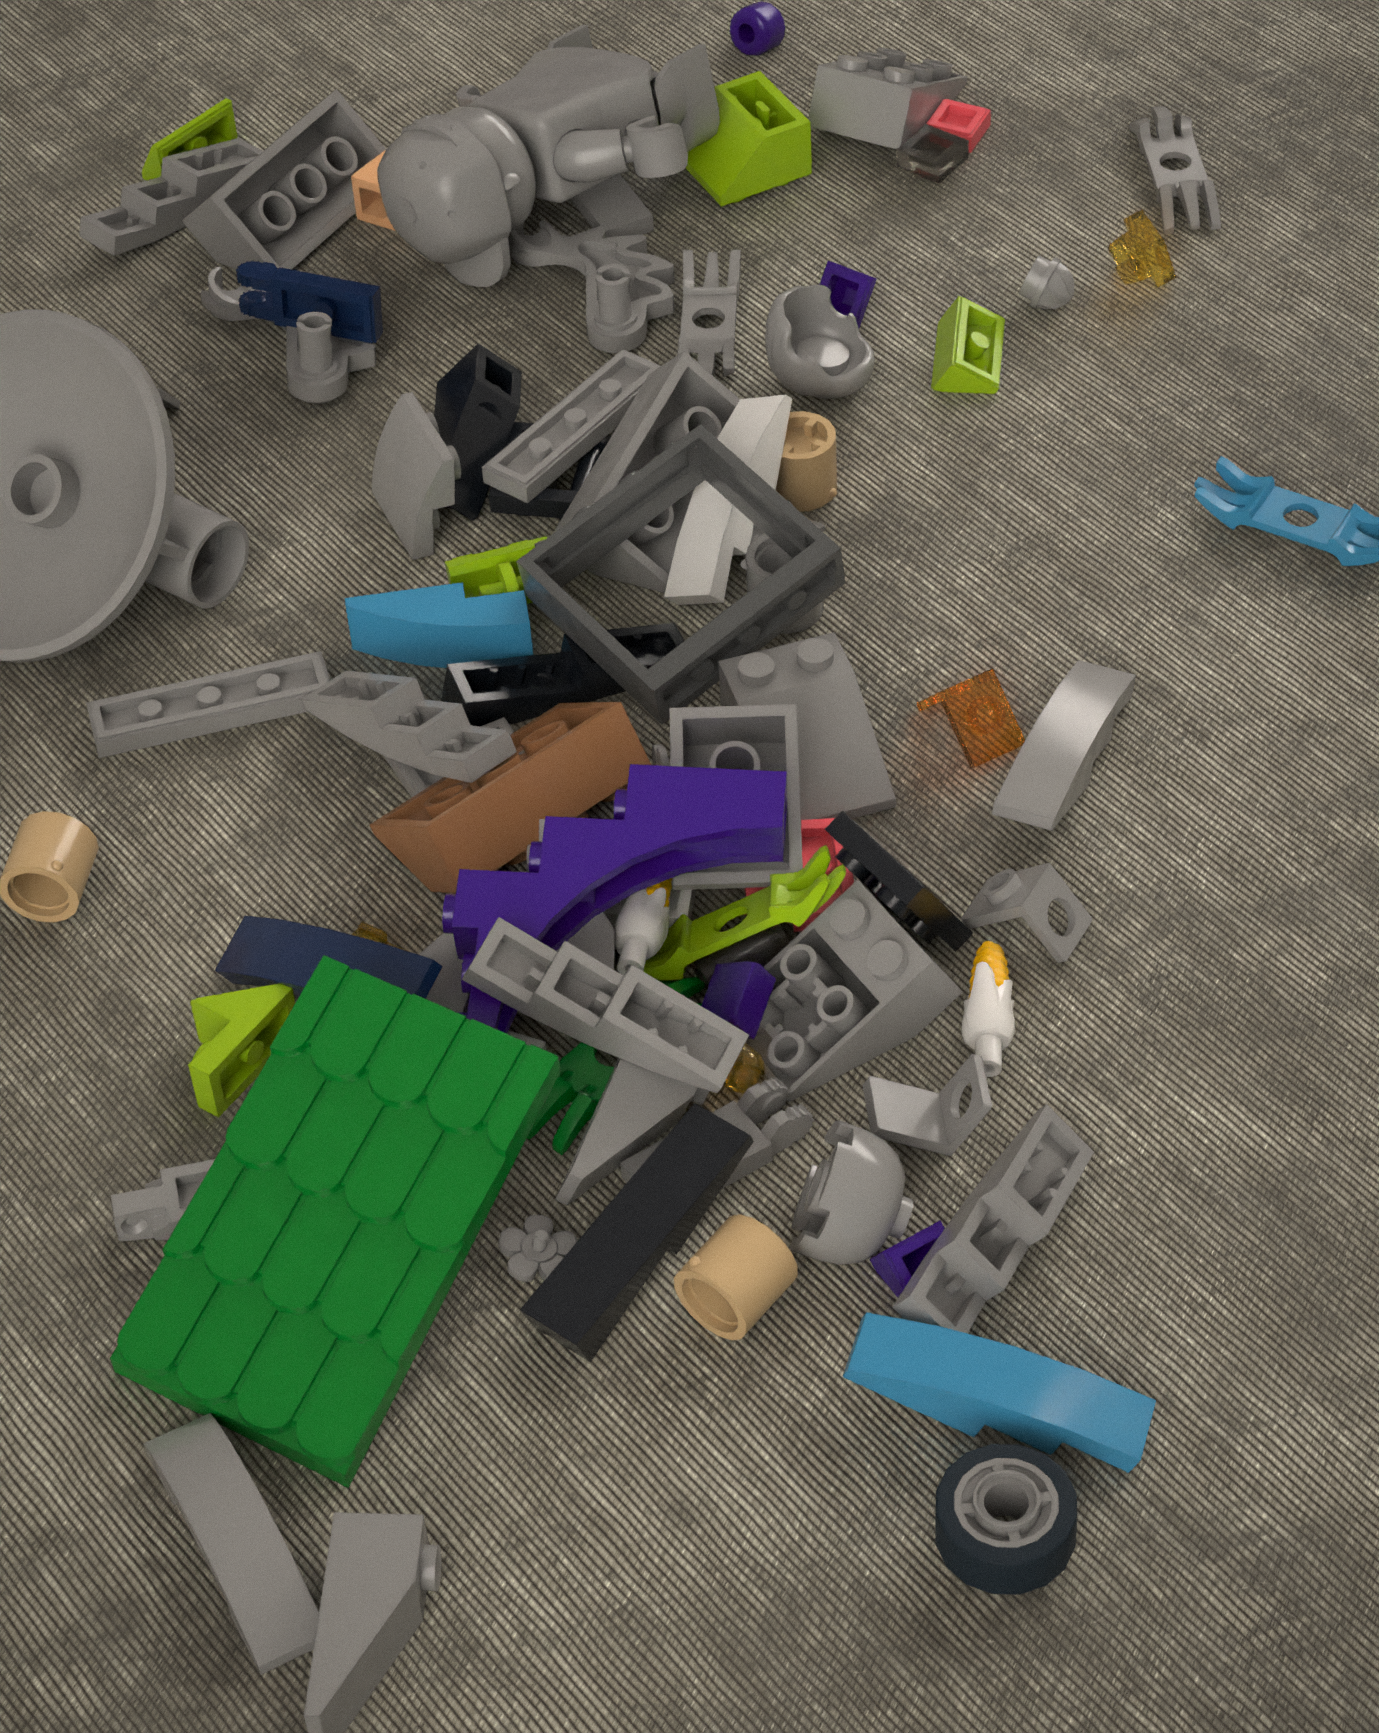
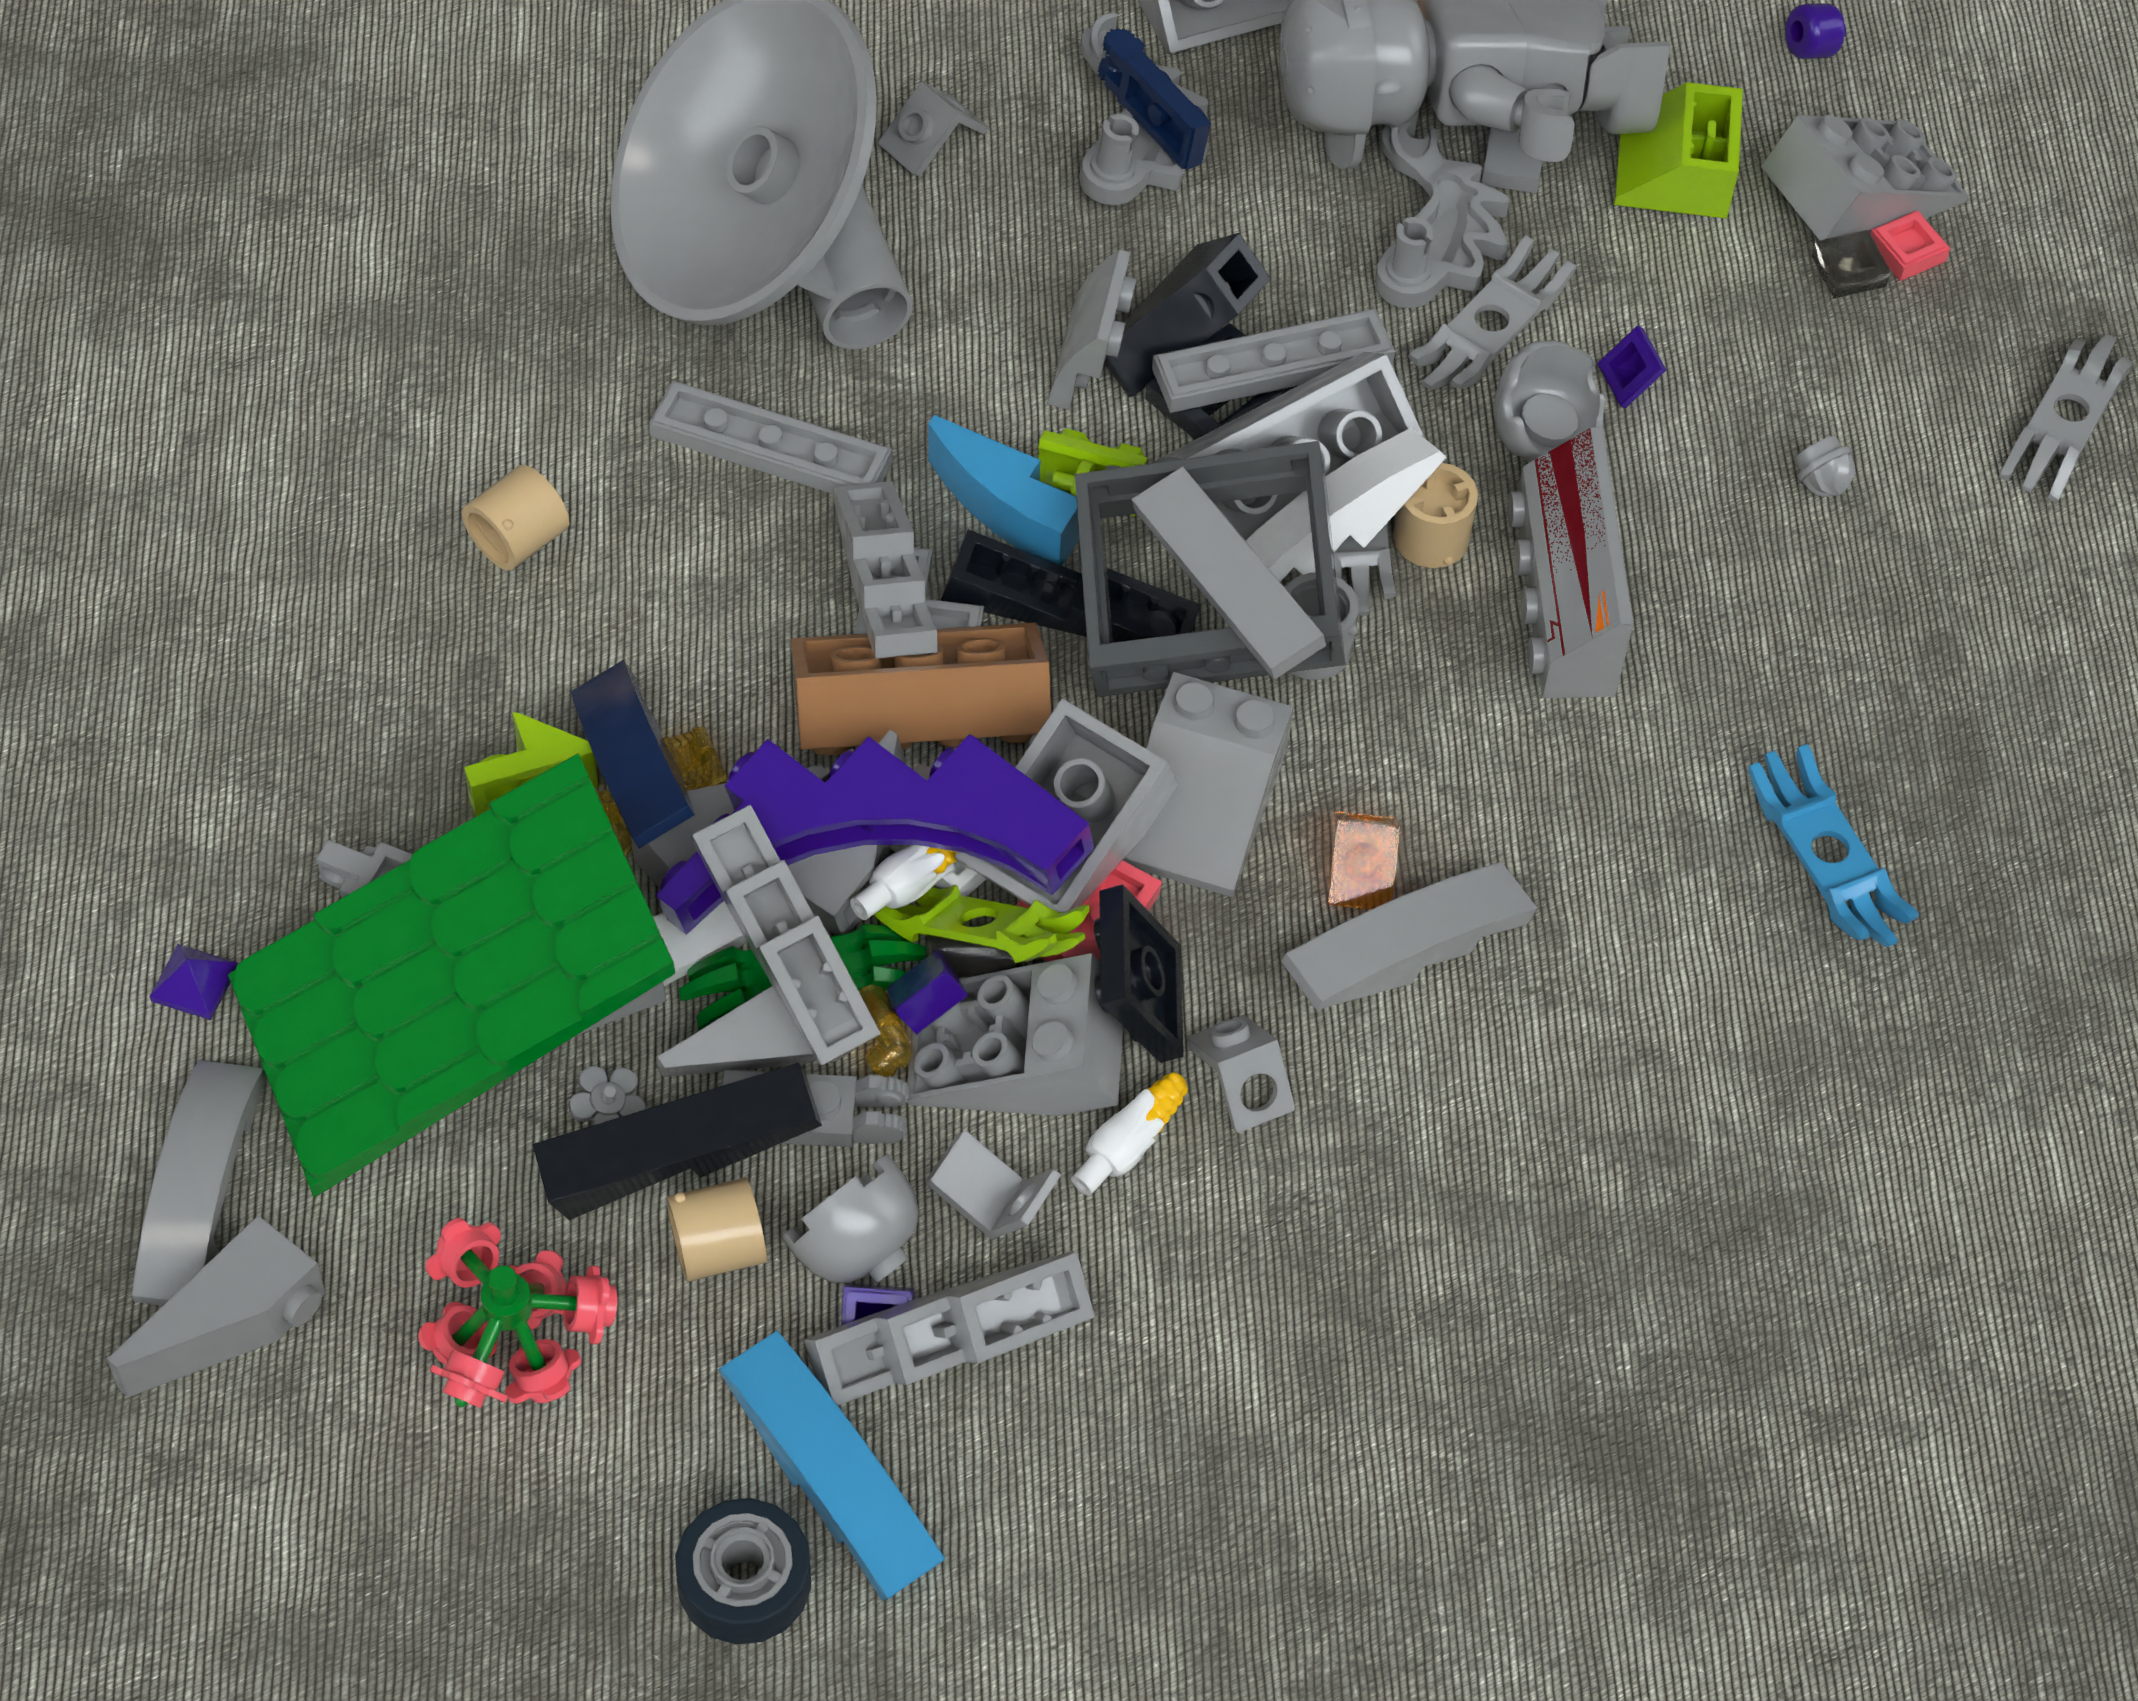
camera: 30 degrees right, 10 degrees up
(79, 1387) = (193, 982): none -> dark purple slope
(629, 1427) = (511, 1300): none -> coral plant
(713, 553) = (1229, 573): none -> light grey tile
(944, 432) = (1572, 569): none -> light grey slope
(968, 349) = (1700, 491): lime slope -> none
(1143, 252) = (1943, 487): clear yellow tile -> none

